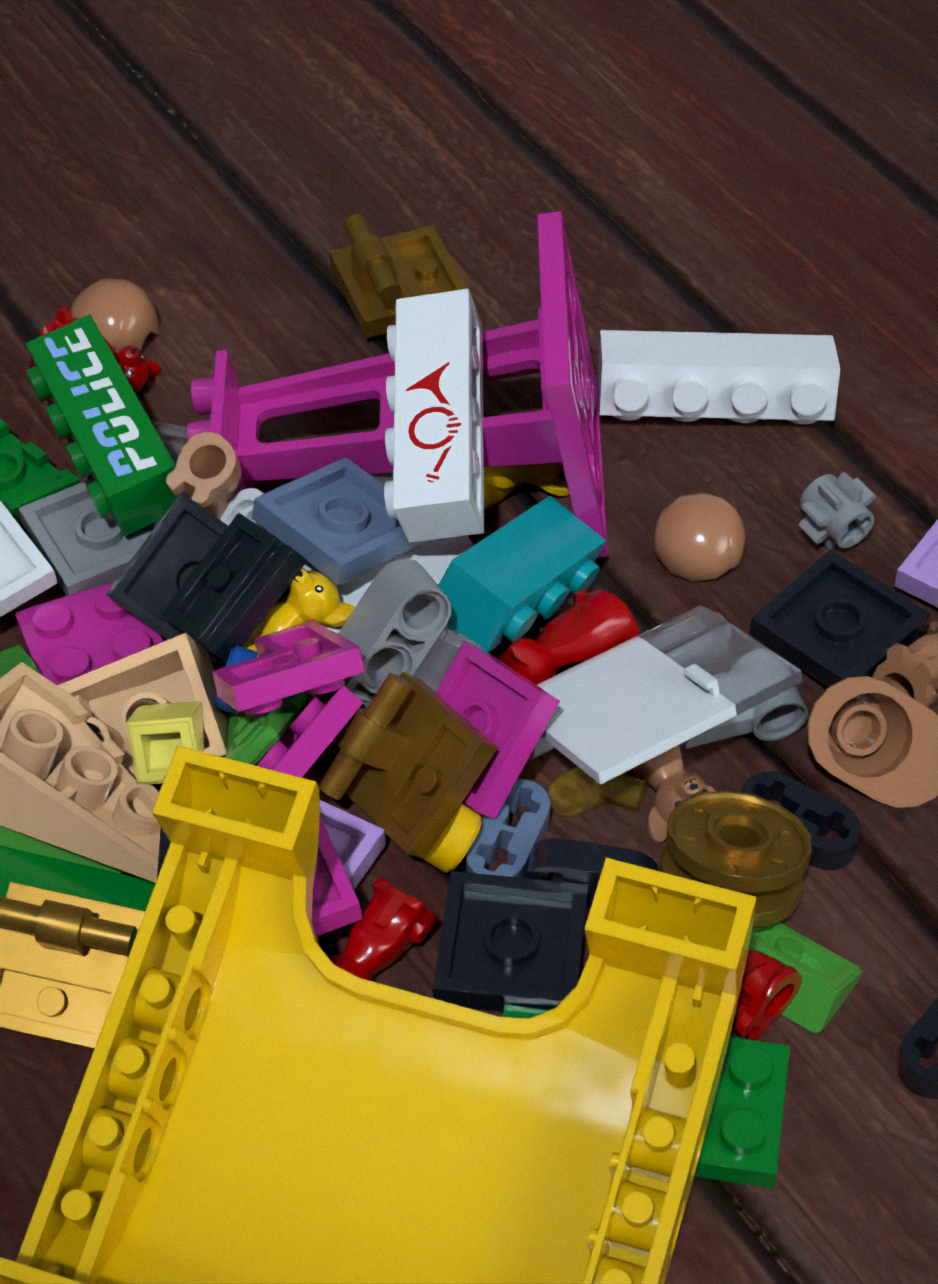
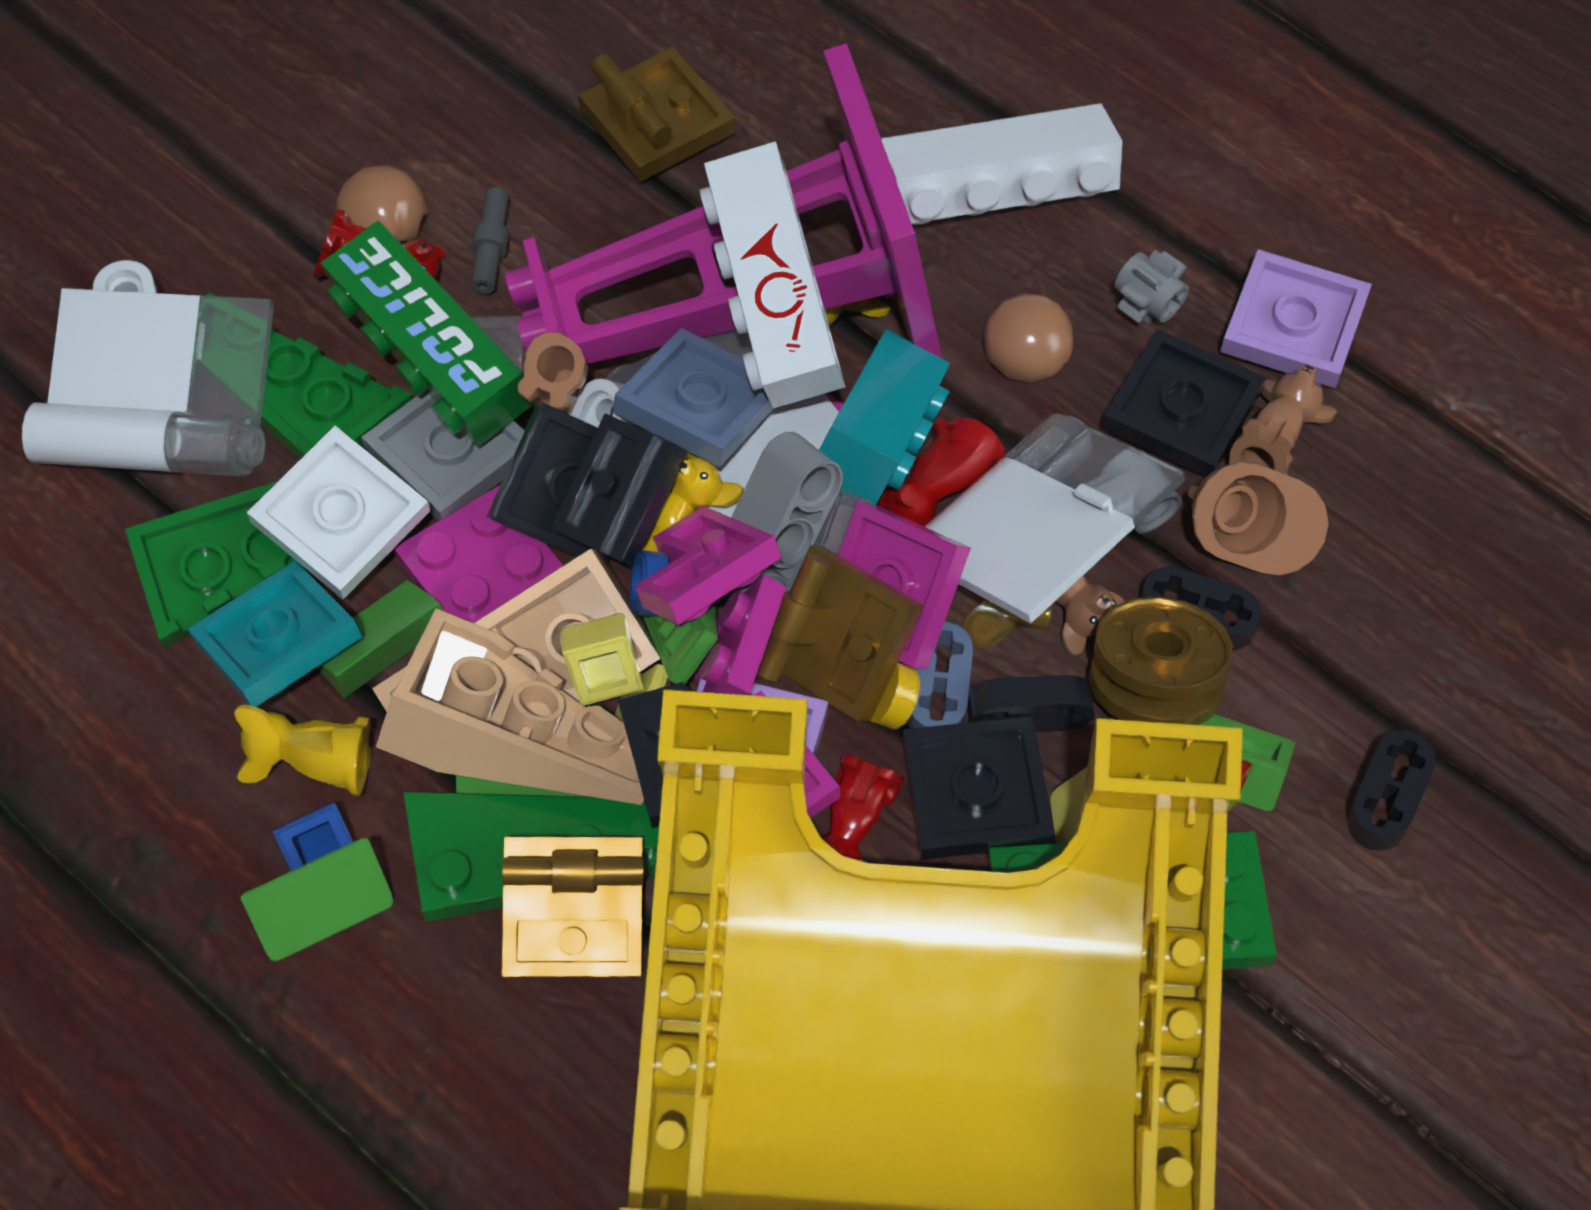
camera: 15 degrees left, 10 degrees up
(202, 360) = (489, 240): none -> dark grey bar

